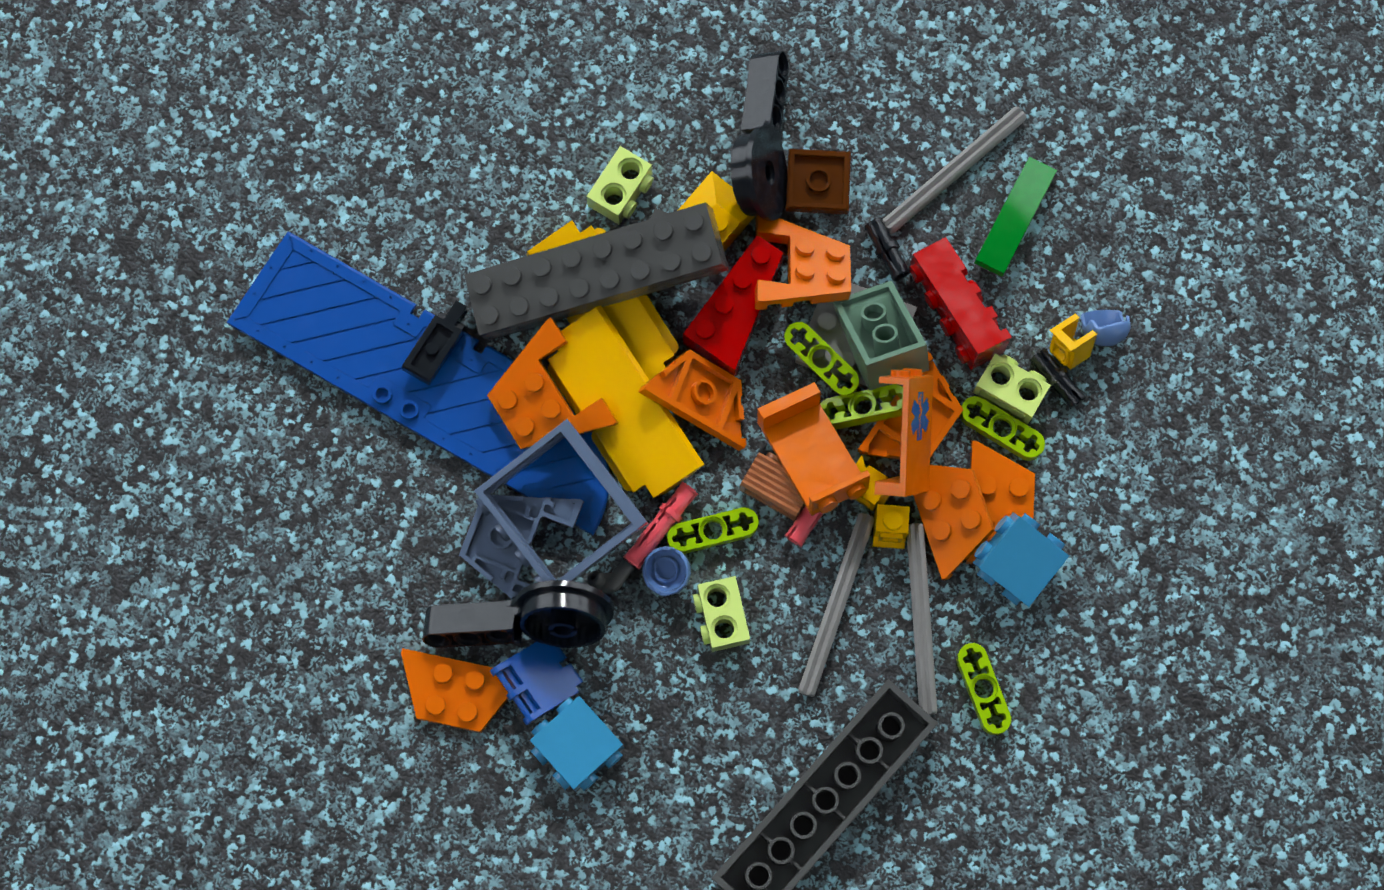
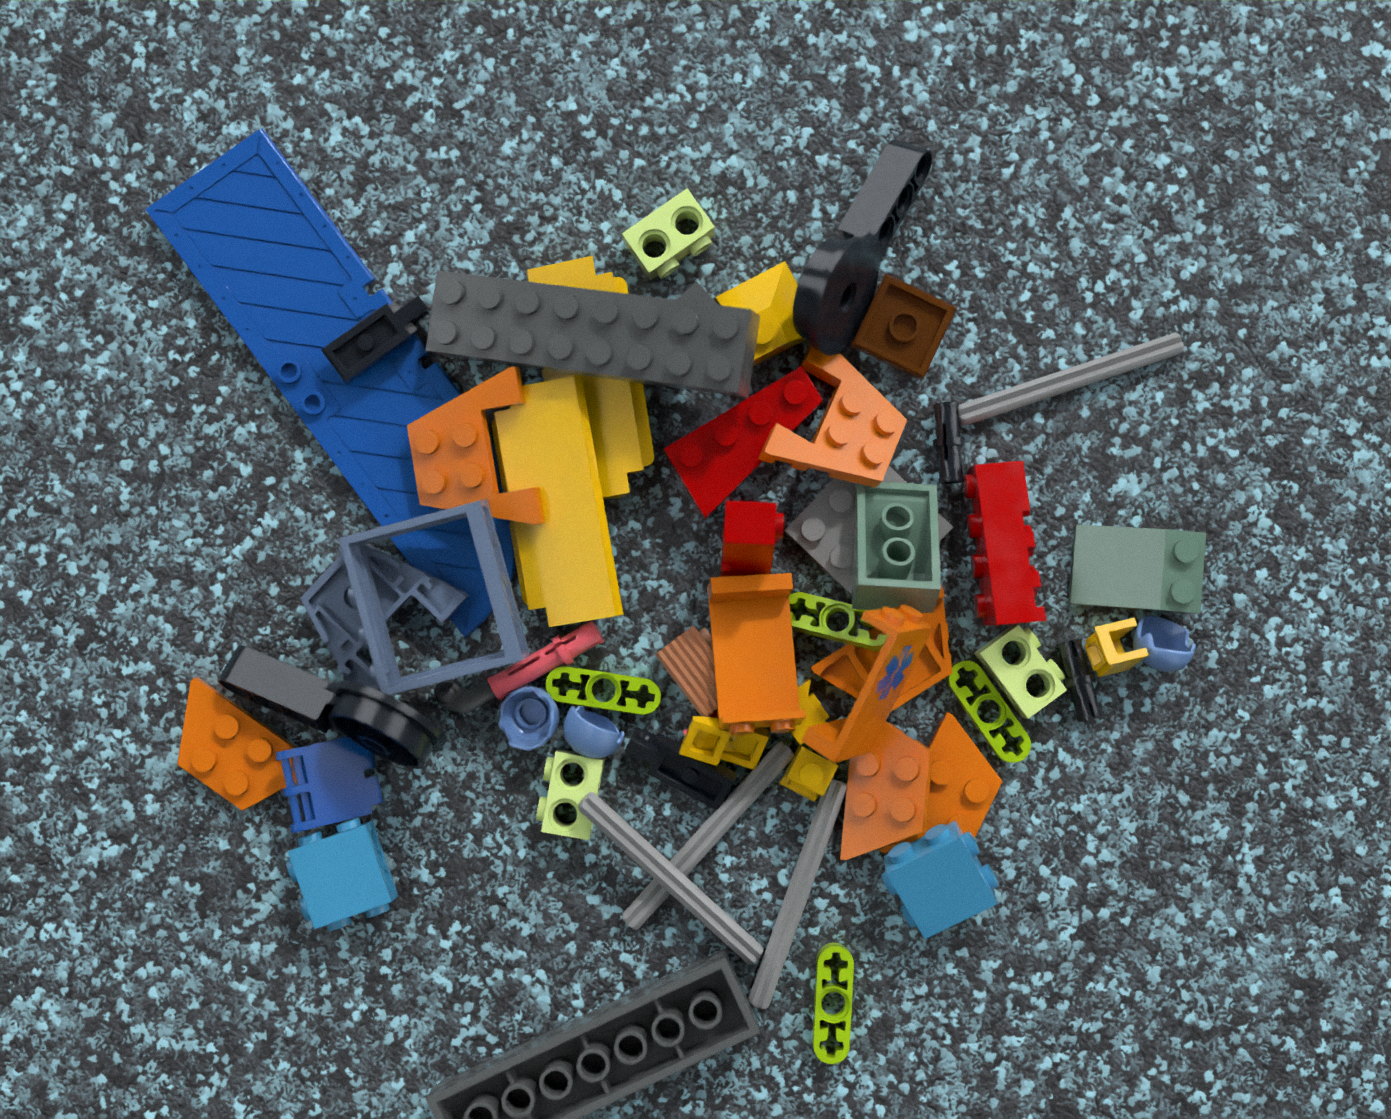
camera: 20 degrees right, 10 degrees up
(701, 396) = (654, 529): orange wing -> none
(717, 563) = (591, 733): none -> medium blue hair
(771, 366) = (749, 537): none -> red wedge
(796, 561) = (693, 777): none -> black hinge
(810, 336) = (816, 576): lime beam -> none
(817, 529) = (710, 744): none -> yellow slope
(823, 642) = (670, 877): none -> light grey axle
(1015, 216) = (1116, 468): green slope -> none
(1063, 281) = (1137, 568): none -> sand green slope

